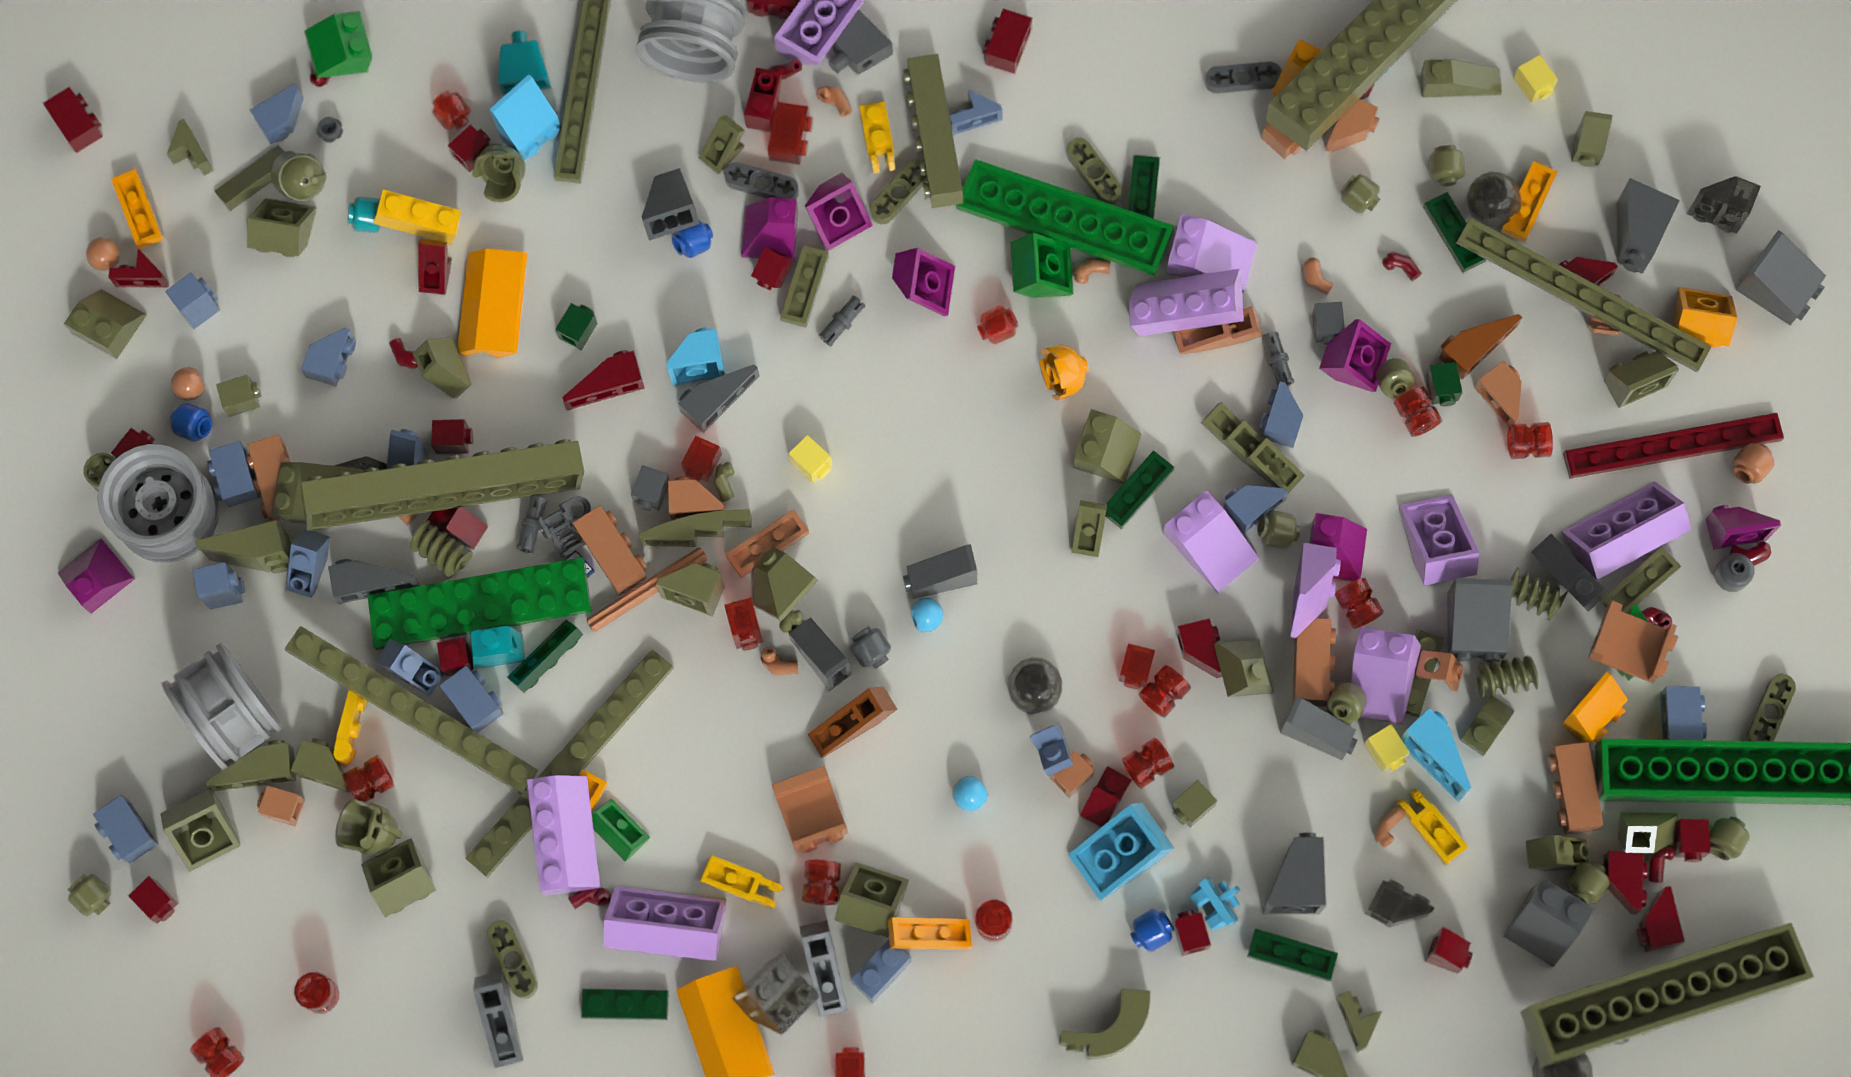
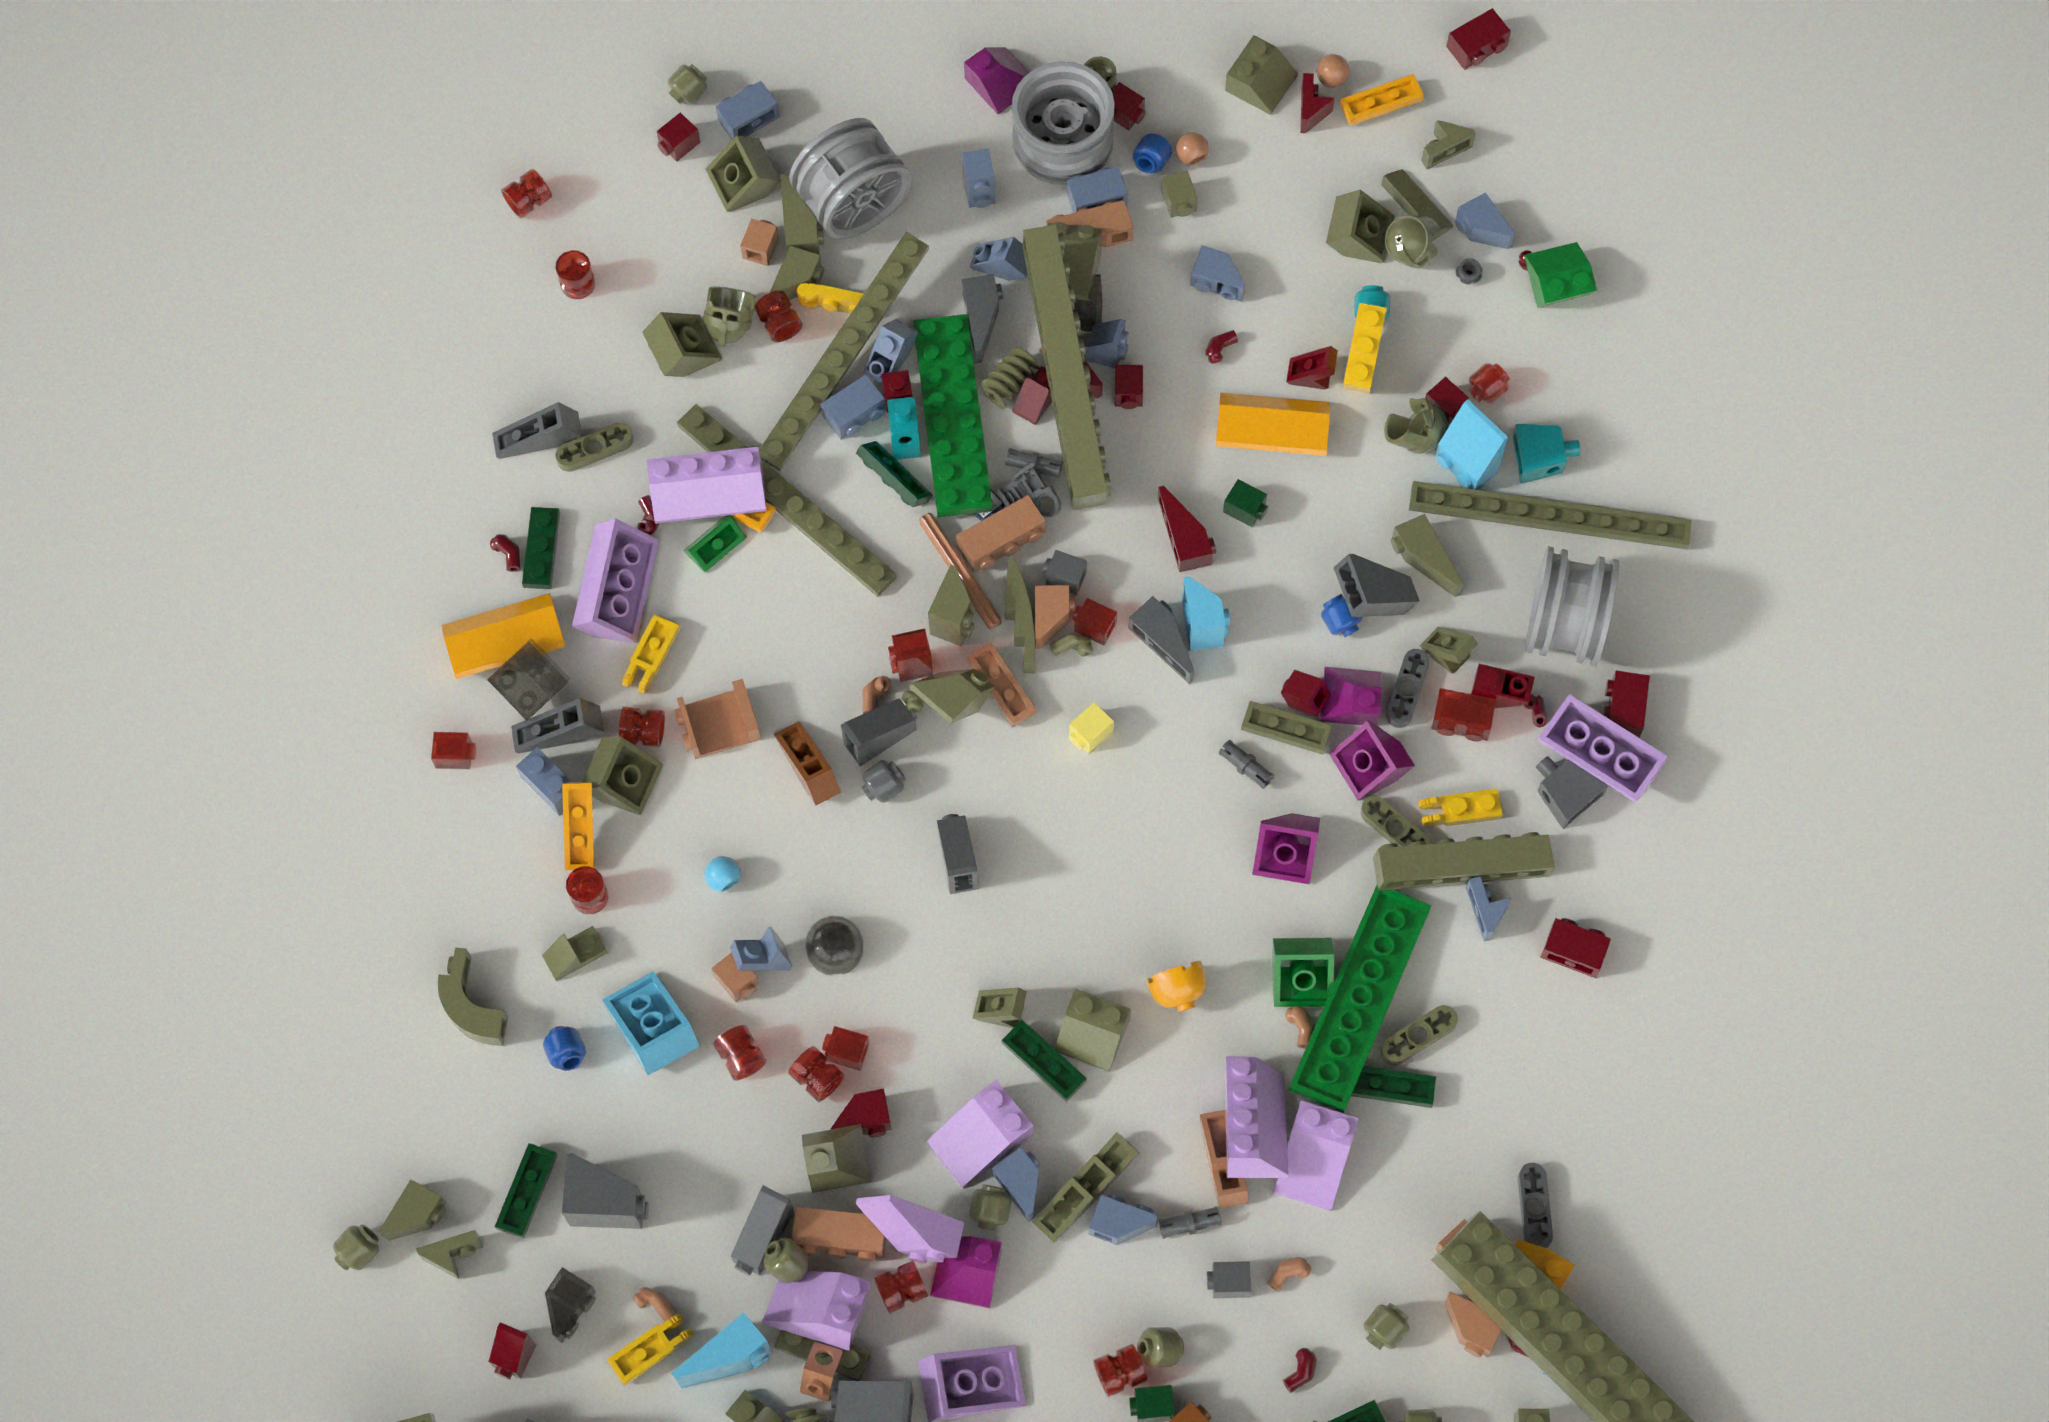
camera: 90 degrees right, 5 degrees down
(193, 299) = (1277, 147): sand blue brick -> none
(257, 547) = (1014, 203): olive slope -> none
(442, 366) = (1202, 376): olive slope -> none
(624, 167) = (1425, 553): none -> olive slope
(627, 1036) = (509, 548): none -> dark red arm
(834, 97) = (1508, 765): nougat arm -> none
(926, 614) = (915, 837): medium azure piece -> none
(998, 324) = (1236, 922): clear red head -> none
(1054, 931) = (573, 953): none -> olive slope
(1105, 797) = (709, 1011): dark red slope -> none
(1191, 932) = (558, 1087): dark red brick -> none
(1193, 804) = (693, 1098): olive brick -> none
(1209, 893) = (588, 1117): medium azure hips -> none
(1355, 356) = (1190, 1307): magenta slope -> none
(1387, 749) = (735, 1303): light yellow brick -> none

